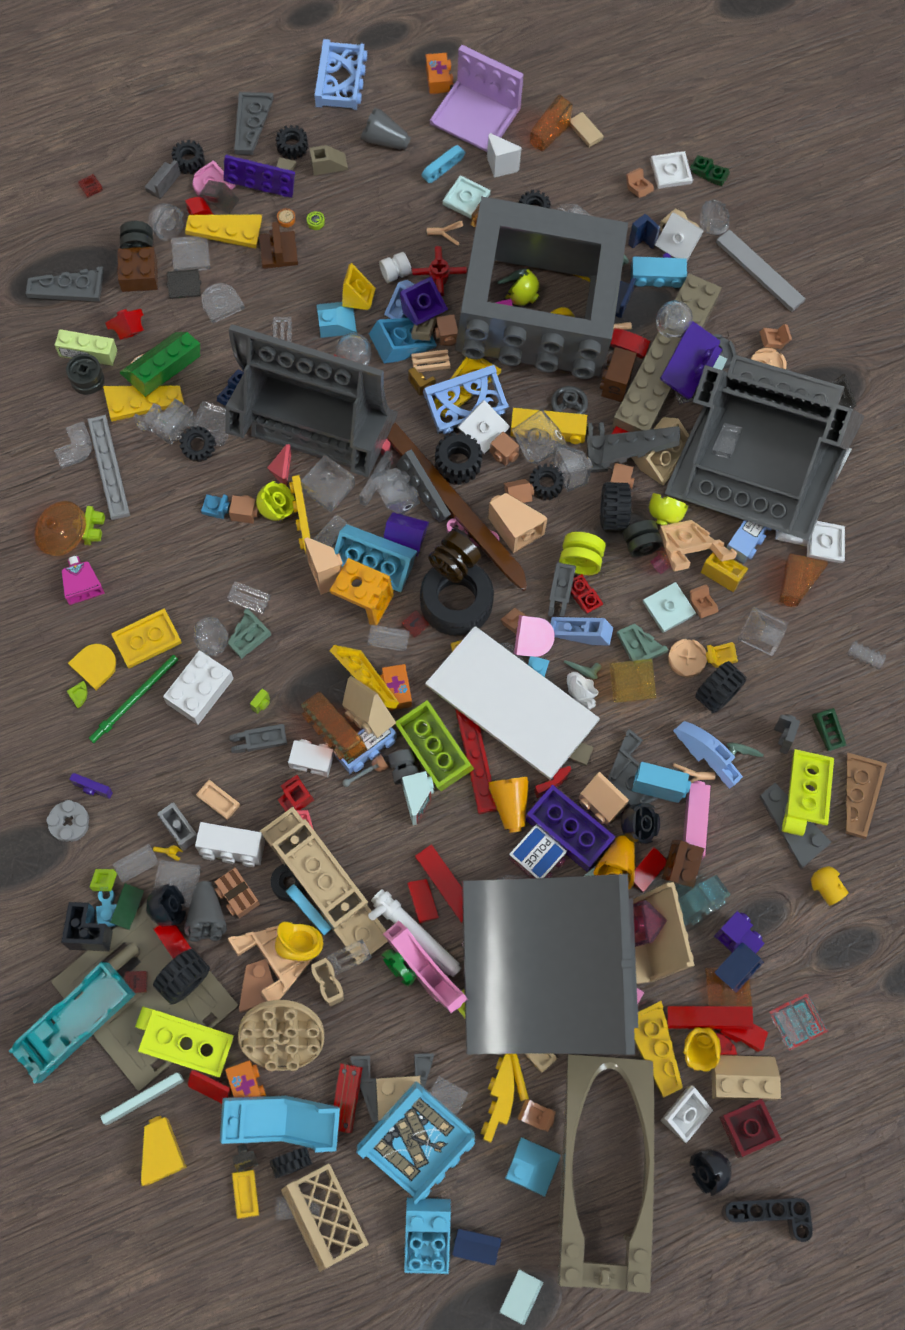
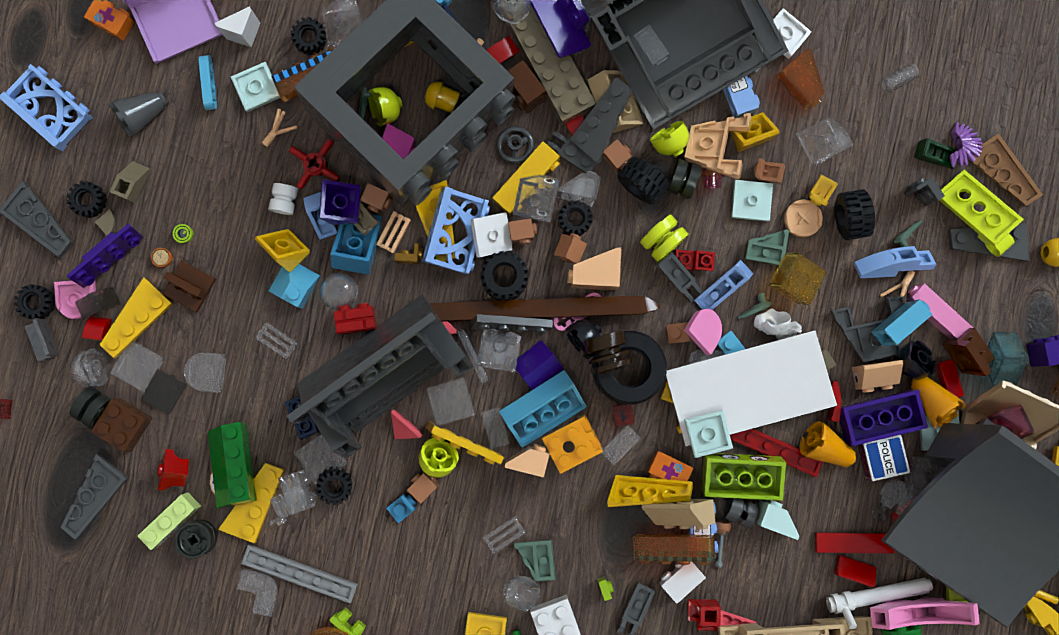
camera: 60 degrees left, 15 degrees up
(448, 690) = (708, 433): none -> light aqua plate
(857, 747) = (966, 144): none -> medium lavender hair

